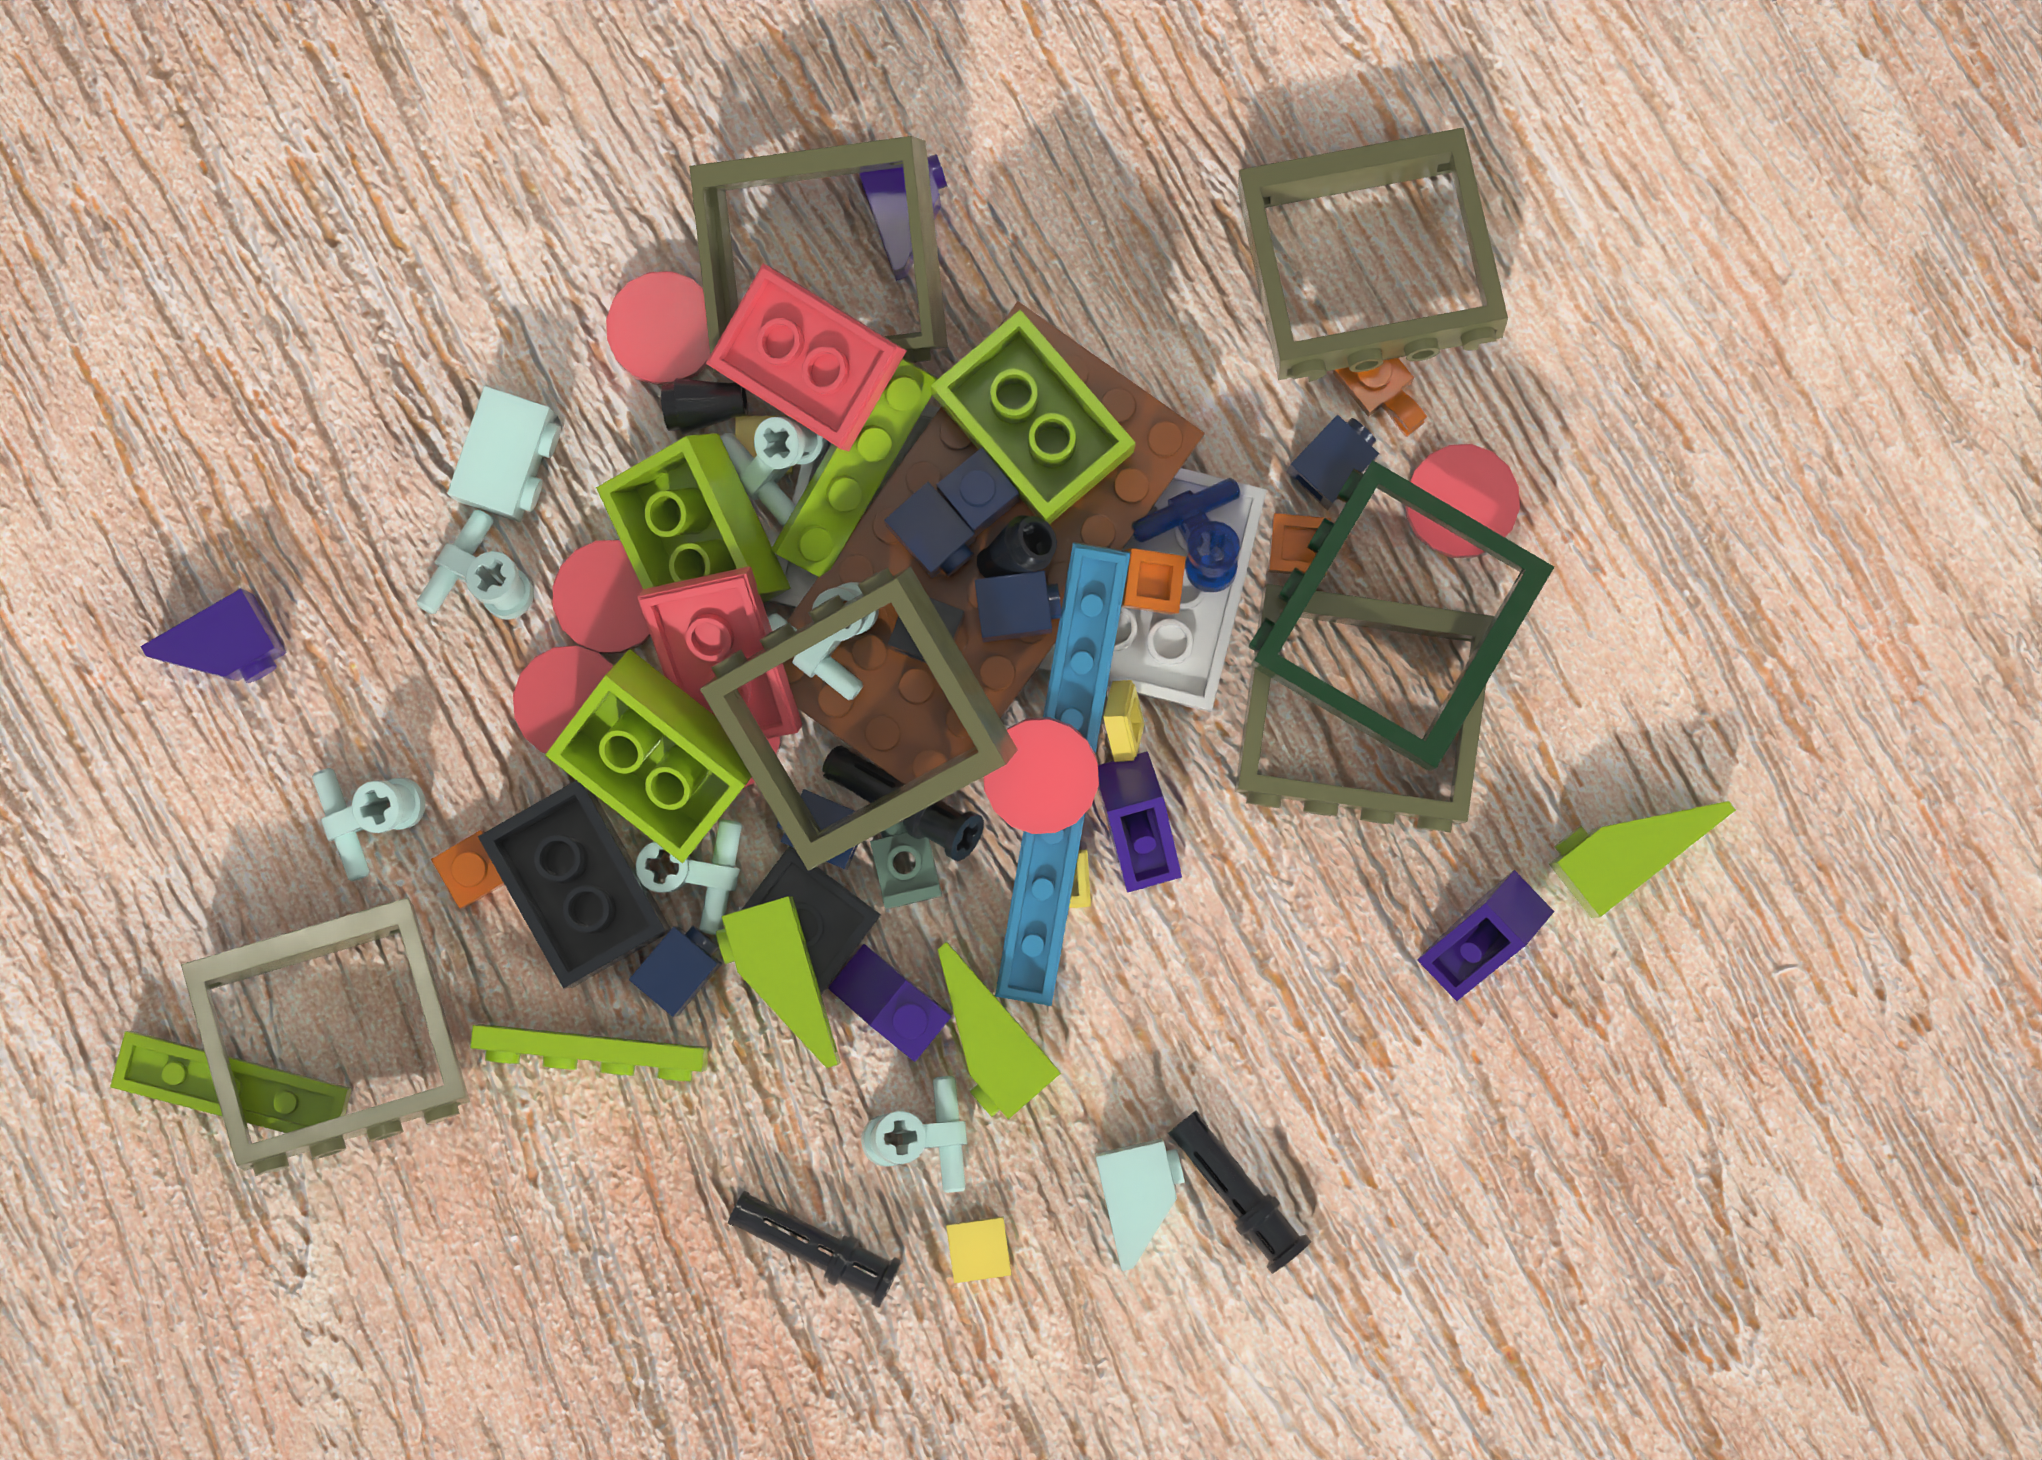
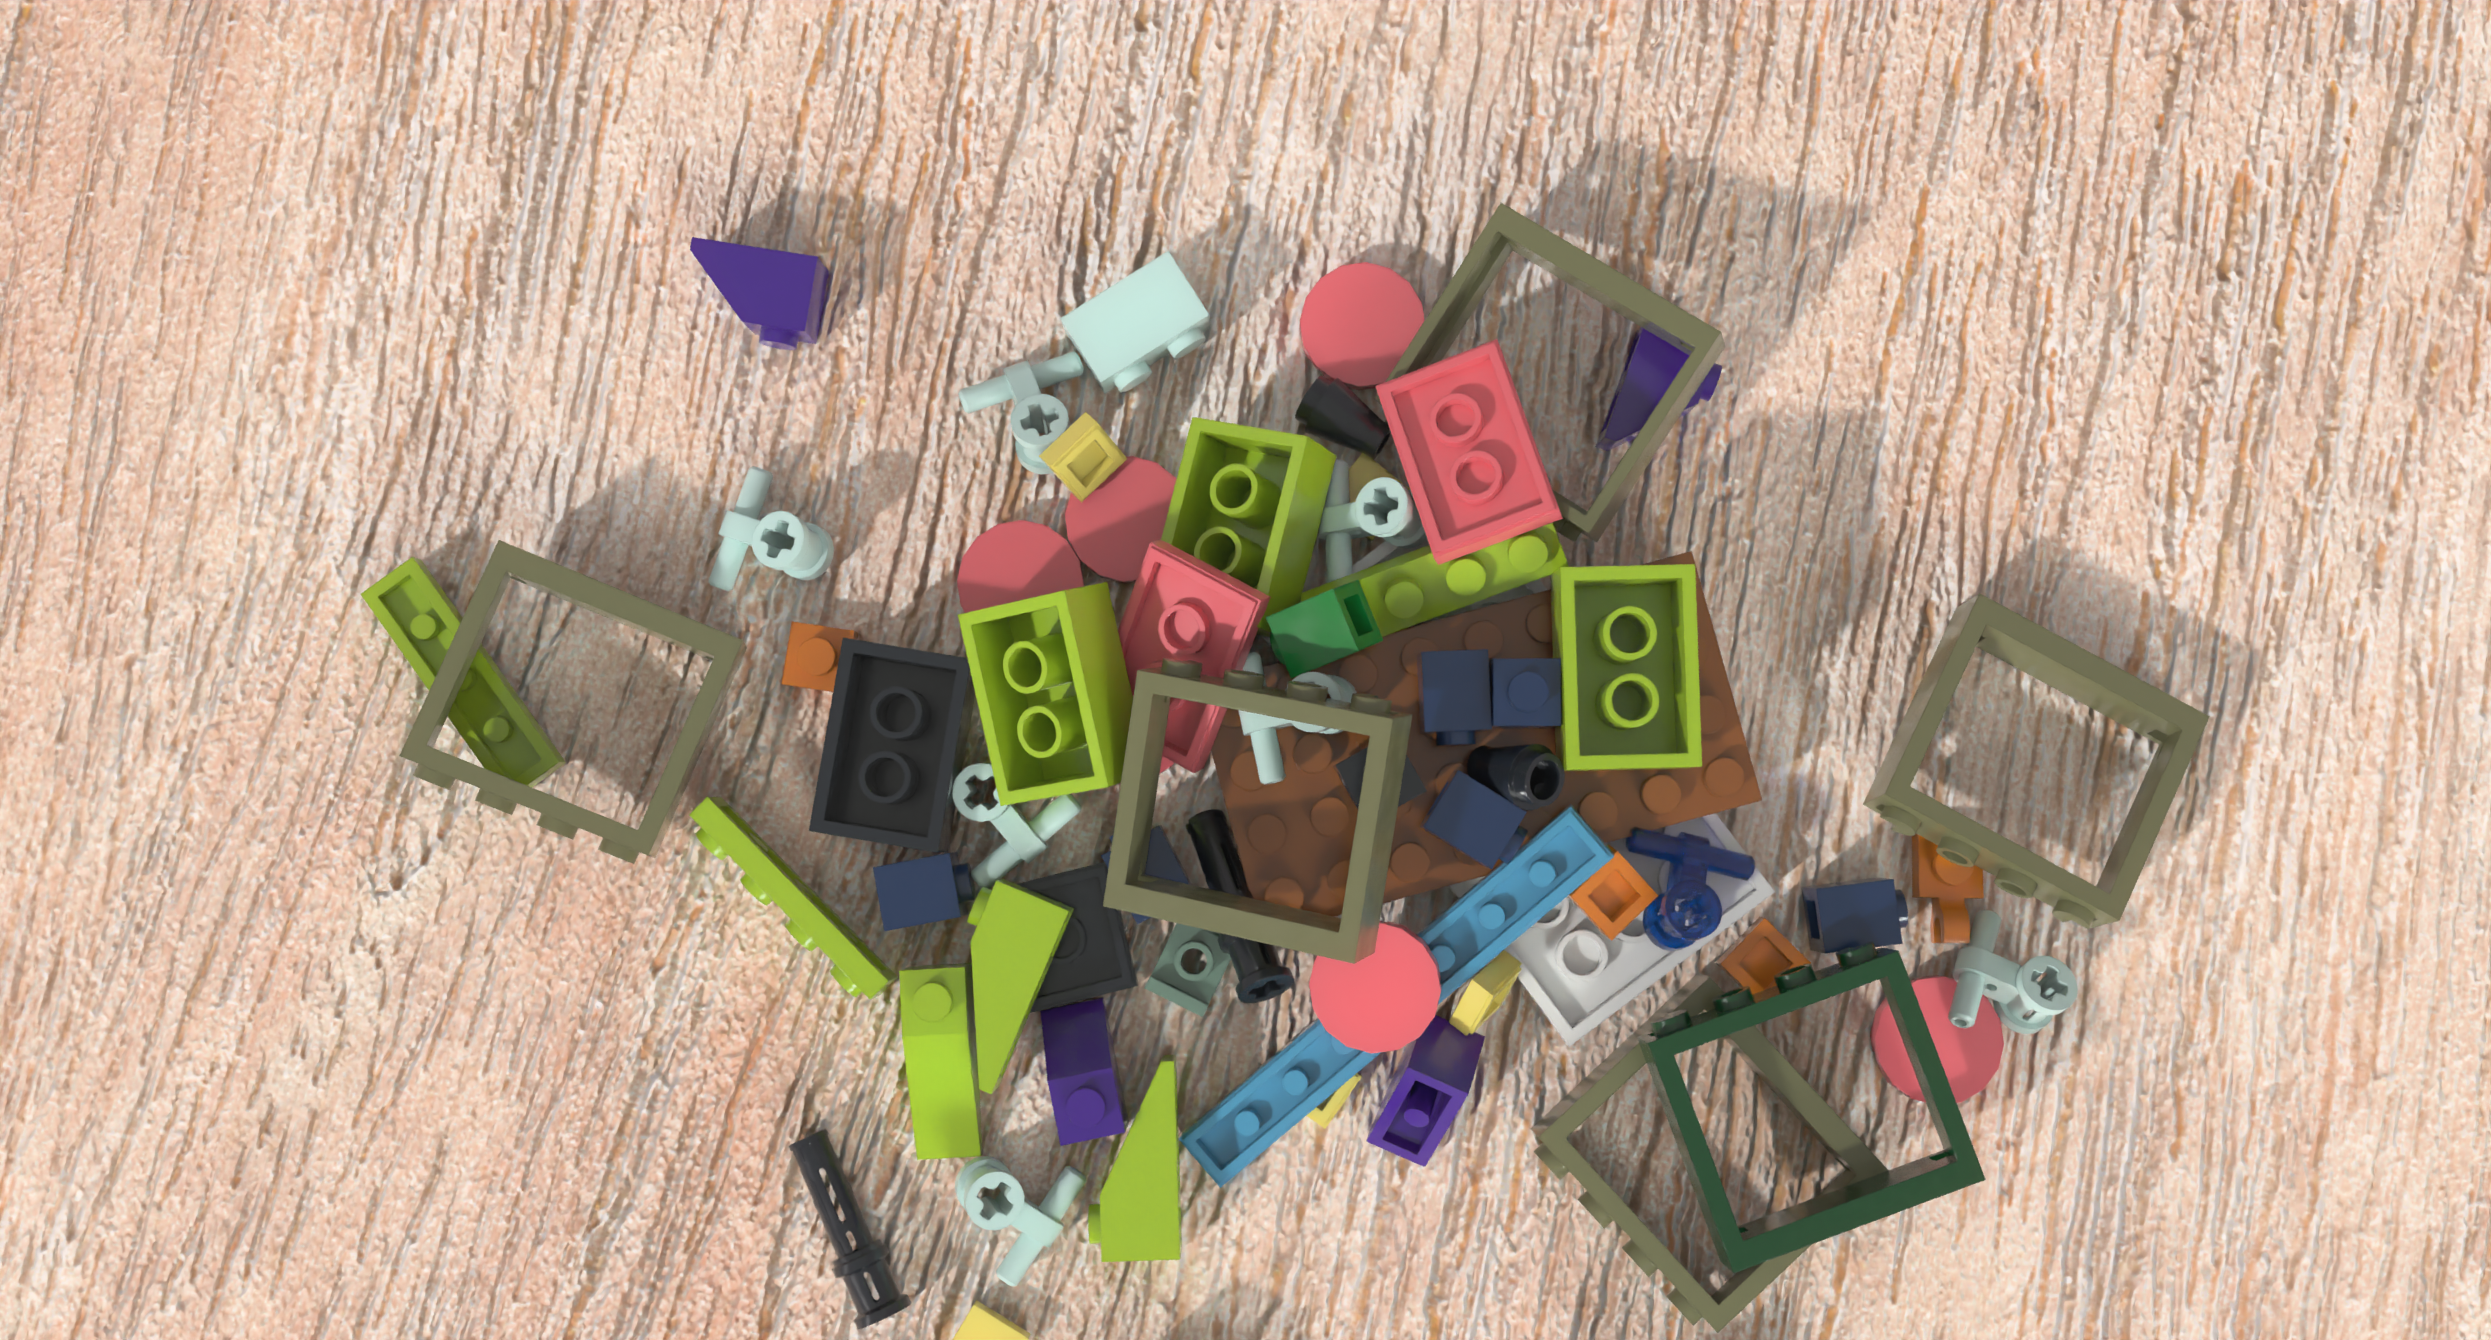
camera: 40 degrees right, 0 degrees up
(542, 577) = (1083, 457): none -> light yellow tile
(786, 1076) = (941, 1059): none -> lime slope
(805, 559) = (1323, 629): none -> green brick
(1475, 422) = (2007, 983): none -> light aqua piece

